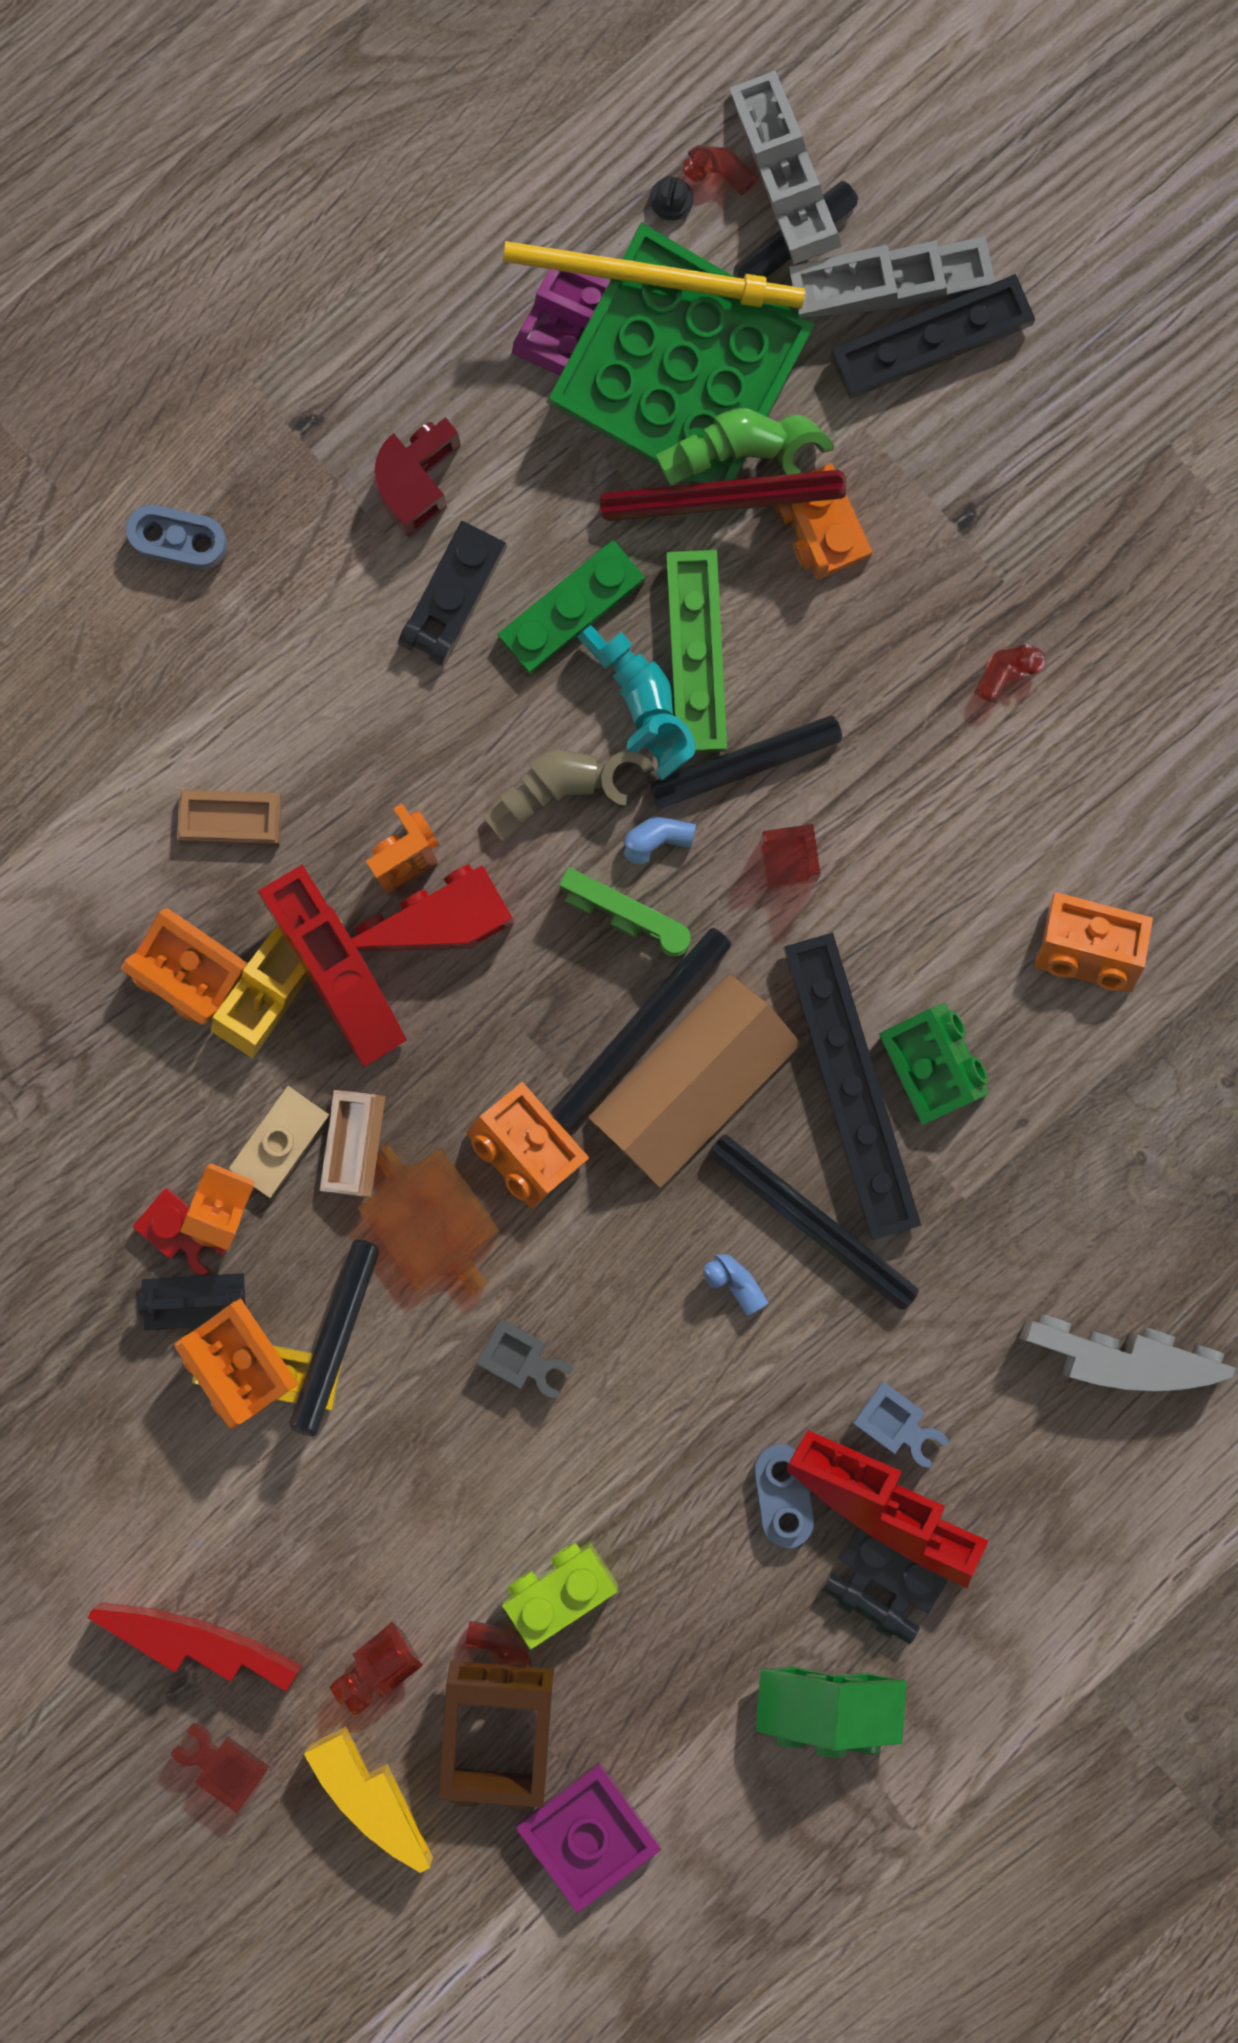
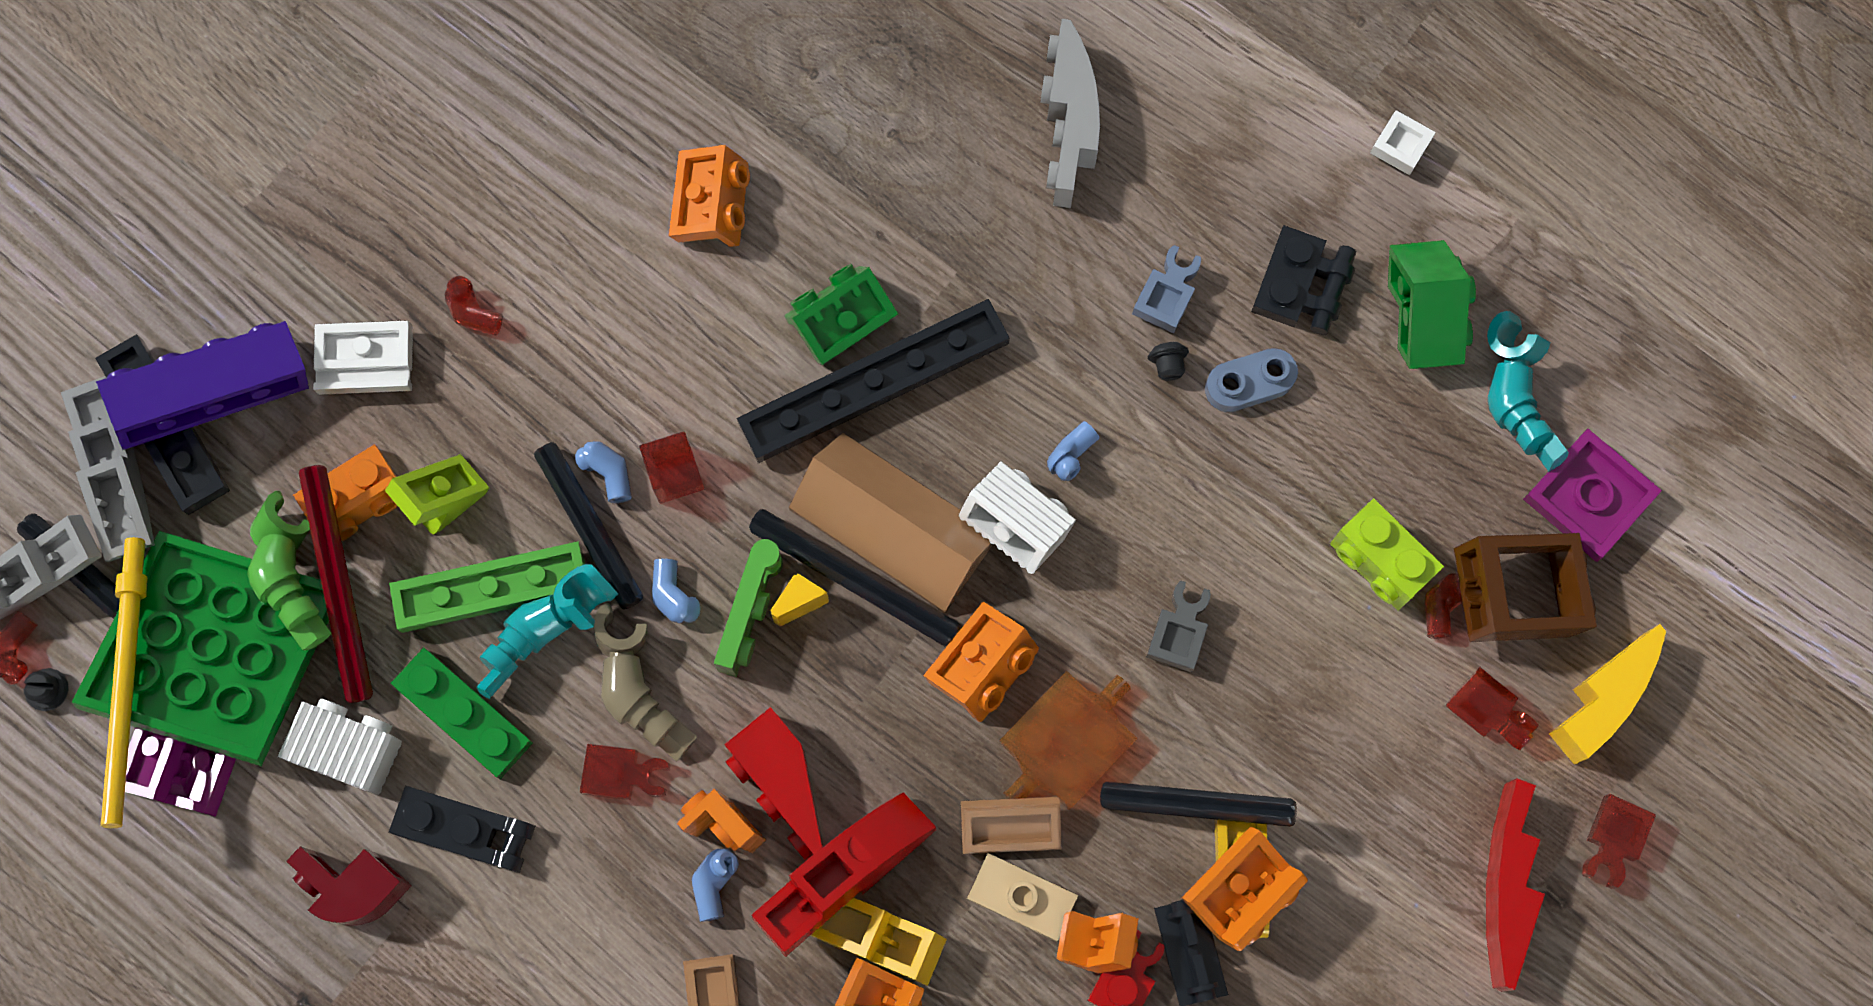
camera: 100 degrees left, 10 degrees down
(353, 829) = (710, 879): none -> medium blue arm
(482, 753) = (615, 771): none -> clear red plate
(555, 482) = (341, 747): none -> white brick
(626, 965) = (797, 600): none -> yellow slope
(671, 1210) = (1017, 517): none -> white brick
(717, 1777) = (1511, 390): none -> teal piece
(806, 610) = (437, 492): none -> lime slope
(808, 791) = (609, 464): none -> medium blue arm
(814, 1222) = (1002, 396): black axle -> none
(820, 1409) = (1169, 360): none -> black piece
(897, 1517) = (1248, 280): red slope -> none
(963, 382) = (202, 384): none -> dark purple brick
(971, 551) = (363, 357): none -> white plate
(1029, 1727) = (1402, 142): none -> white plate

